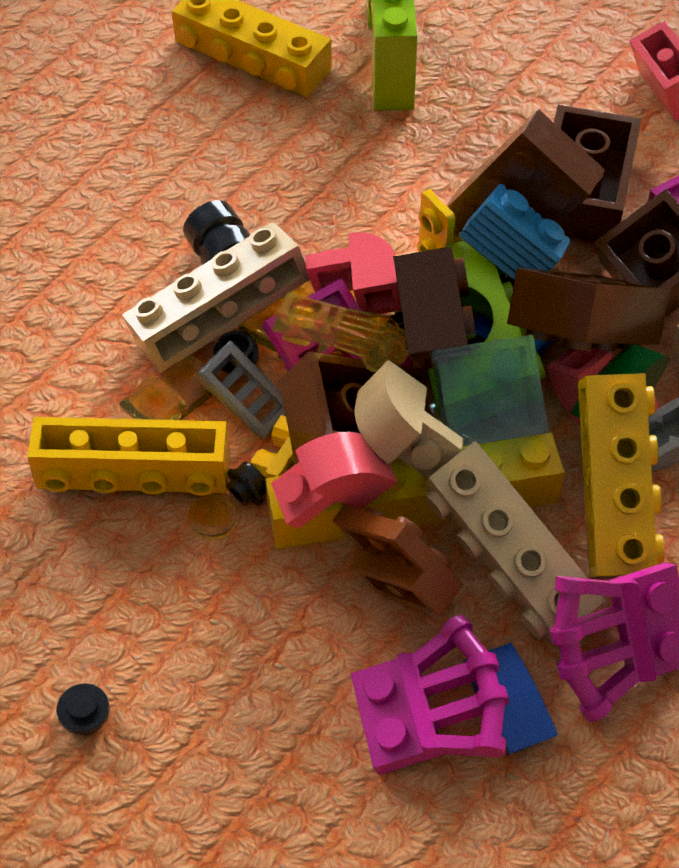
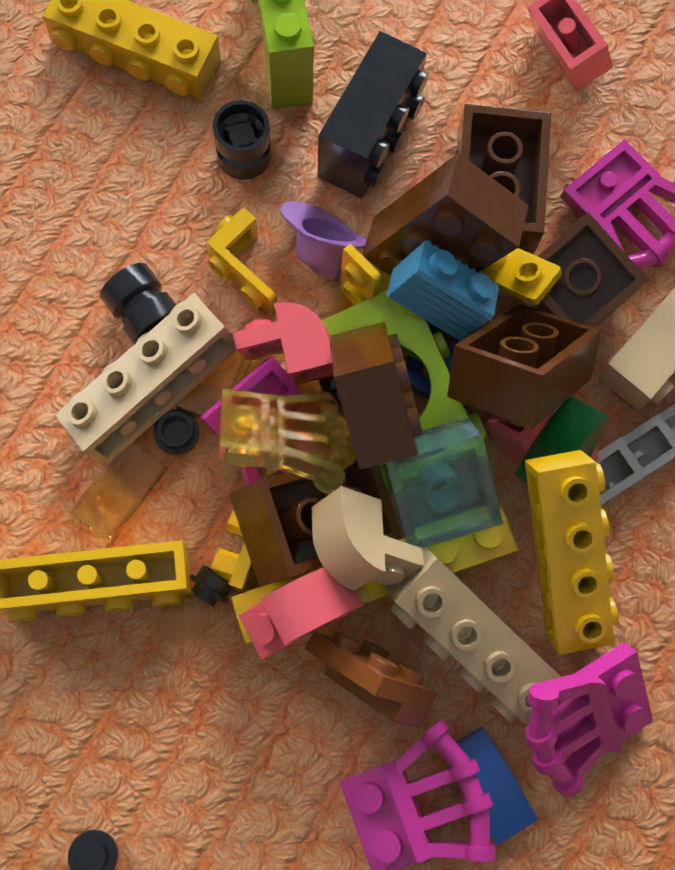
camera: 15 degrees left, 20 degrees up
(243, 365) = (159, 459): light grey slope -> none
(315, 205) = (229, 240): none -> yellow bracket
(340, 122) = (242, 139): none -> black wheel
(398, 211) = (320, 237): none -> medium lavender piece
(466, 111) = (372, 115): none -> black brick
(590, 240) = (524, 275): none -> yellow bracket

